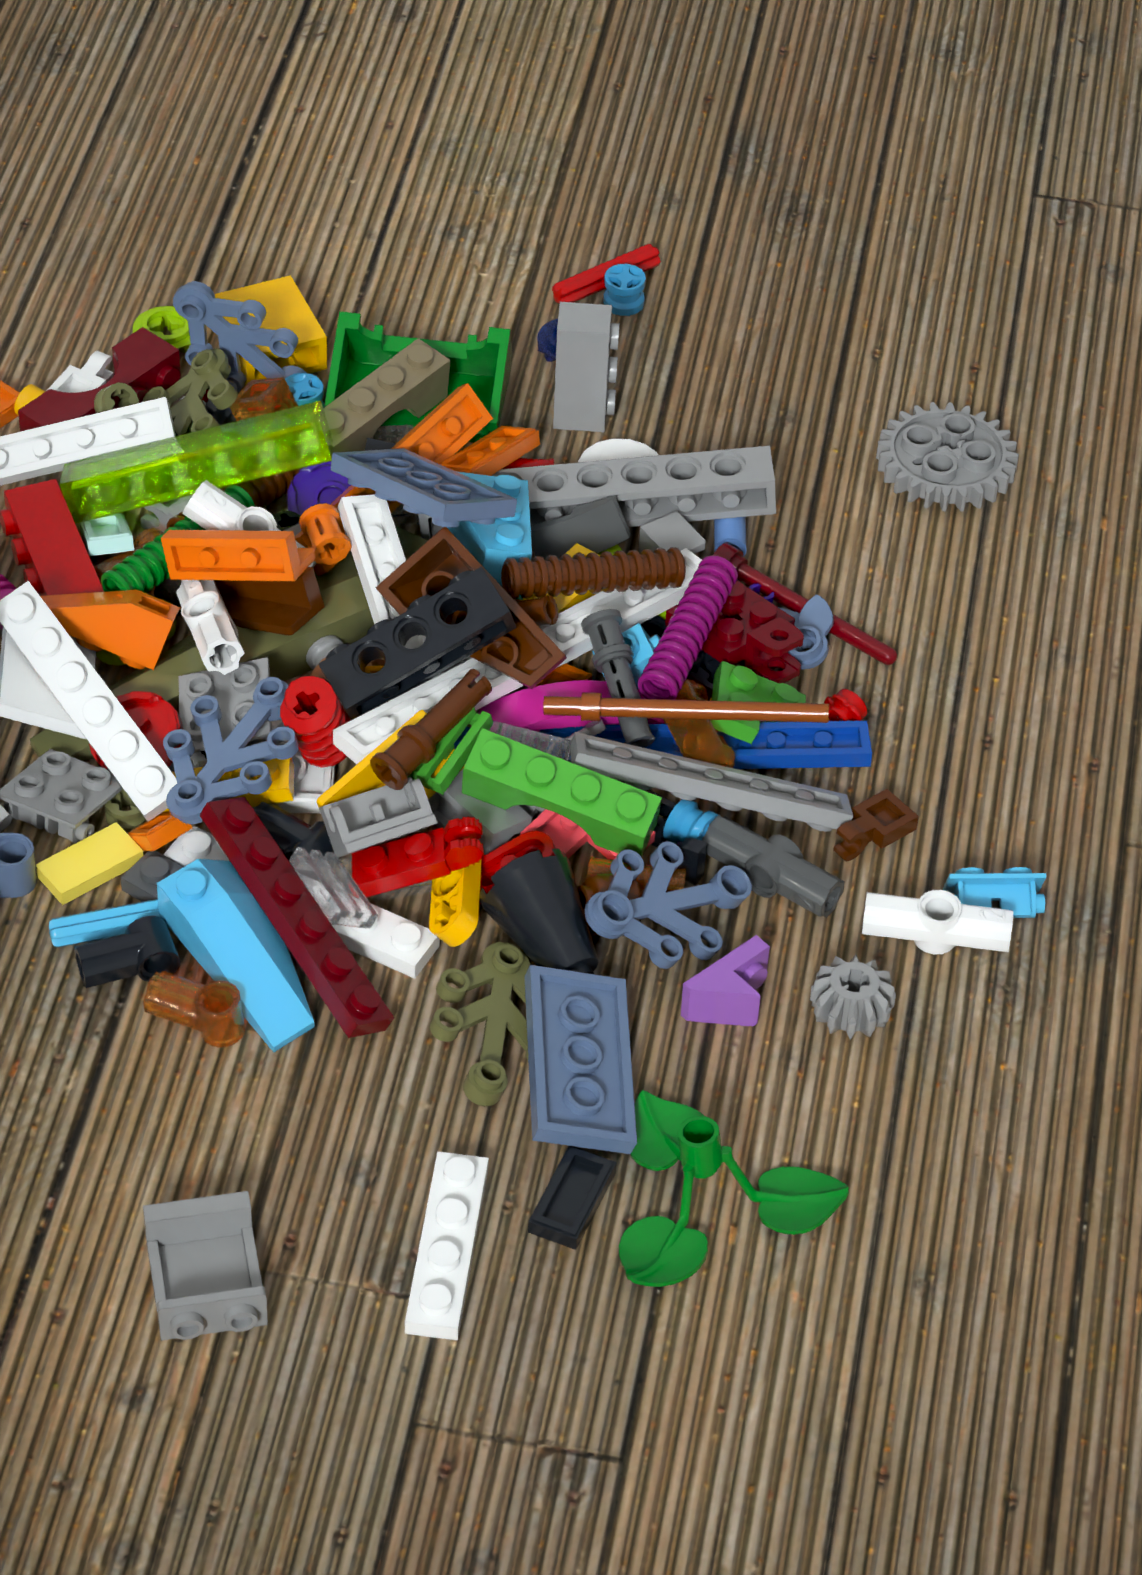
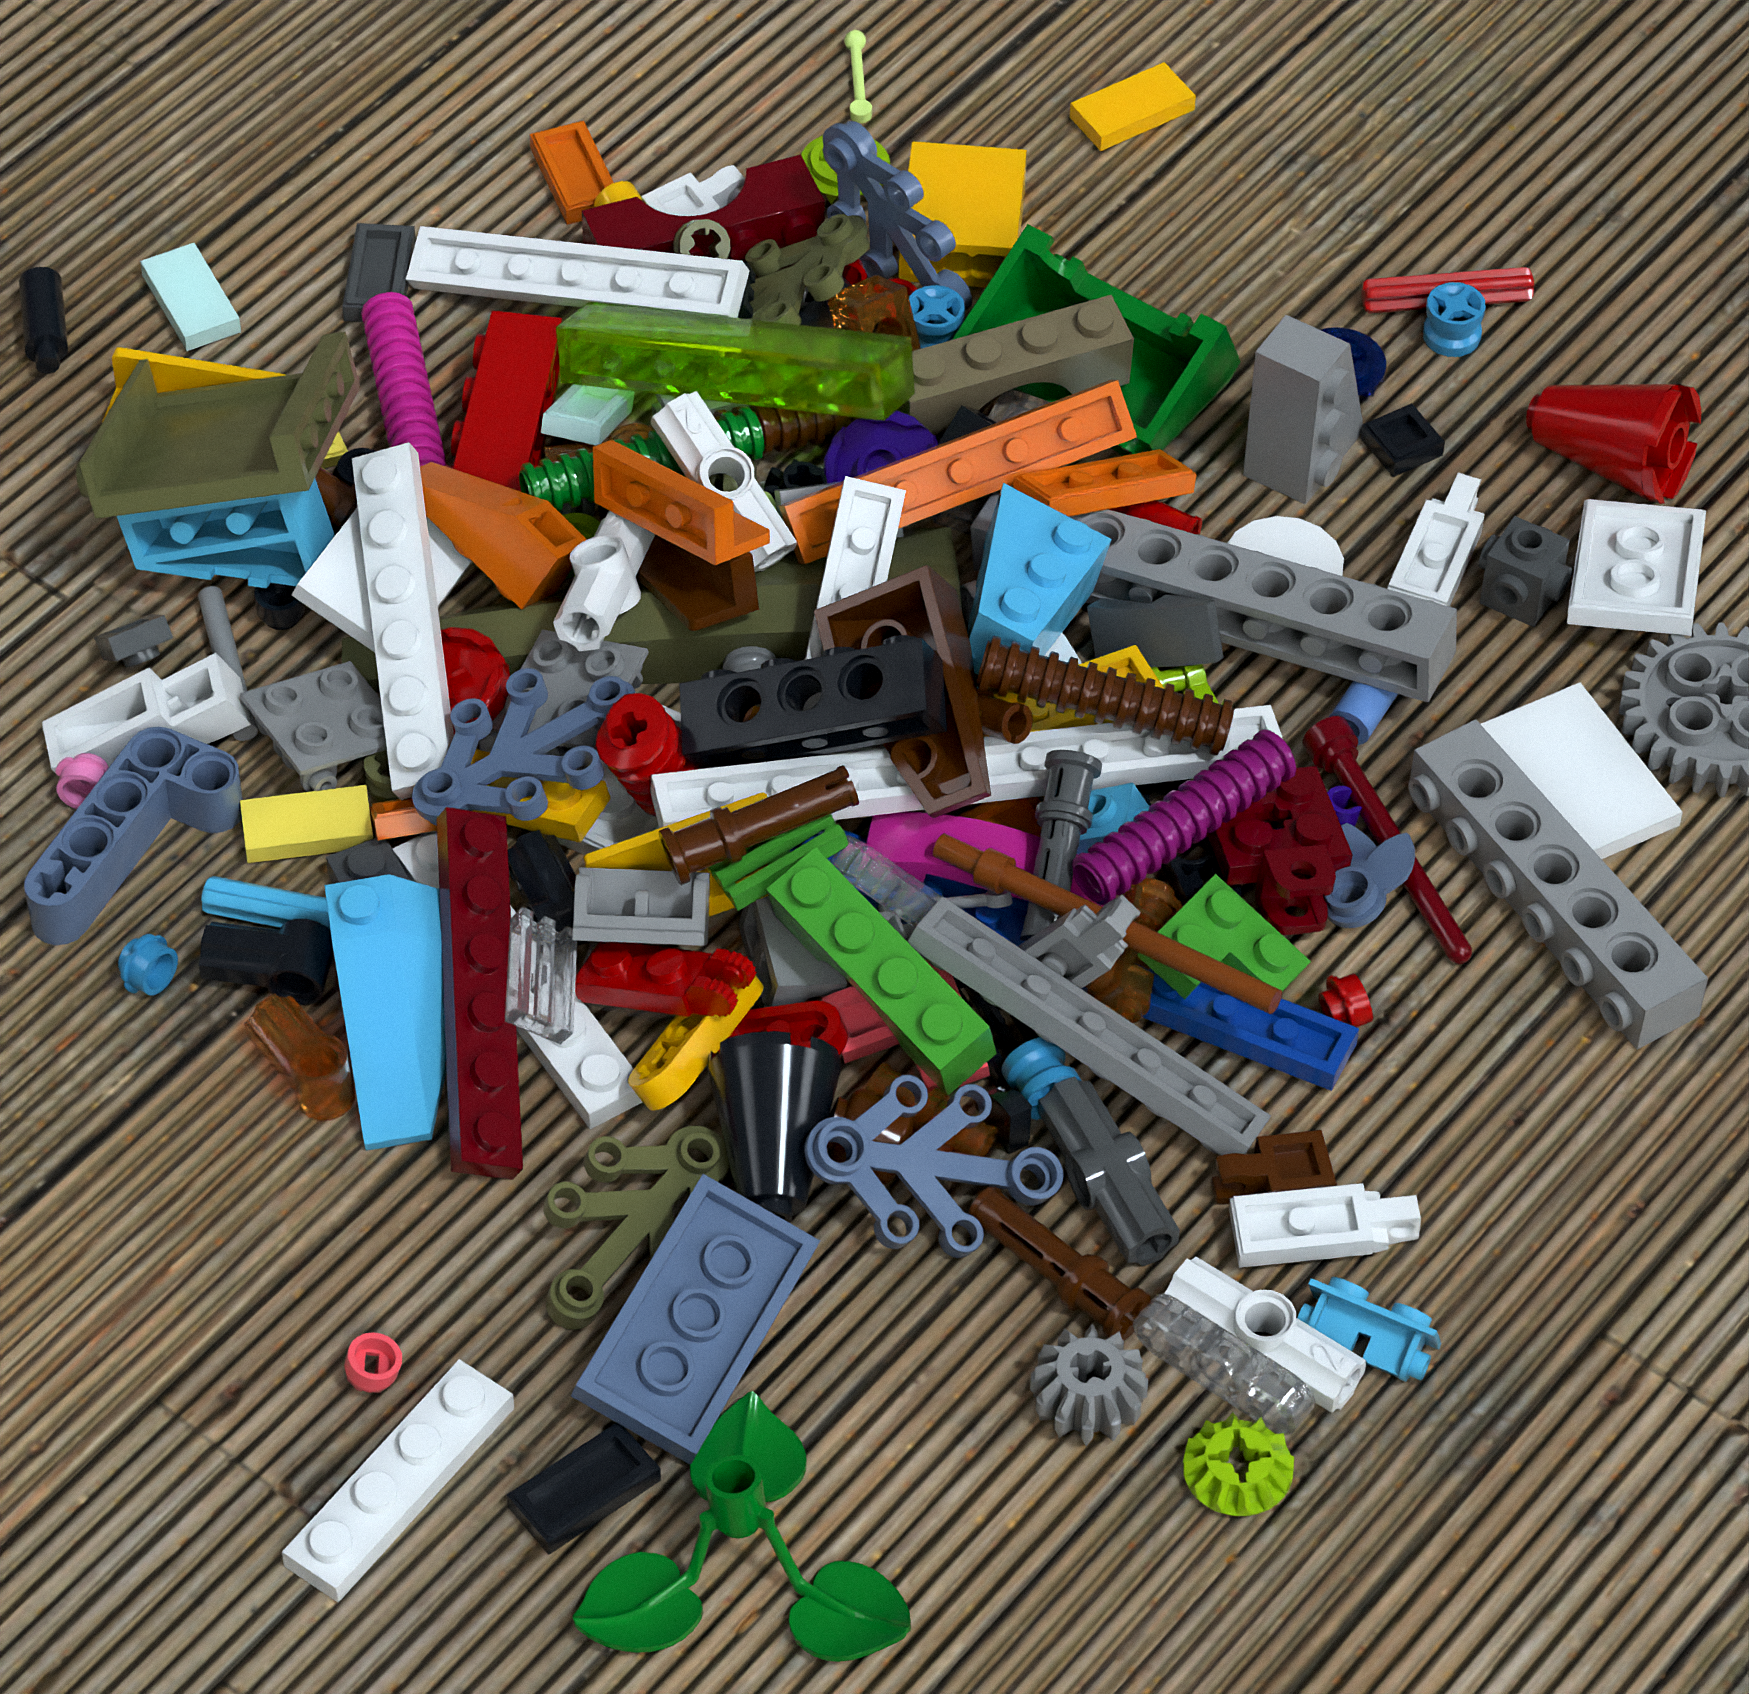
camera: 30 degrees right, 5 degrees up
(43, 993) = (147, 964): none -> dark azure plate
(149, 293) = (860, 108): none -> yellowish green hinge
(204, 1266) = (105, 1381): light grey panel -> none
(326, 533) = (806, 515): orange bush -> none
(328, 233) = (1132, 106): none -> yellow tile
(388, 1174) = (387, 1364): none -> coral hinge
(423, 486) = (949, 501): sand blue plate -> none
(641, 372) = (1402, 440): none -> black tile
(670, 532) = (1271, 680): light grey panel -> none
(684, 723) = (1082, 942): none -> light grey hinge
(710, 418) = (1441, 544): none -> white hinge
(728, 987) = (932, 1301): medium lavender slope -> none
(775, 317) = (1621, 432): none -> red cone
(776, 409) = (1524, 570): none -> dark grey brick
(804, 932) = (1081, 1280): none -> reddish brown pin
(840, 392) = (1637, 567): none -> white tile
(885, 528) = (1586, 770): none -> white tile
(921, 845) = (1319, 1224): none -> white hinge
(922, 591) = (1557, 885): none -> light grey brick
(956, 966) = (1224, 1364): none -> clear beam
(969, 1022) = (1215, 1480): none -> lime gear

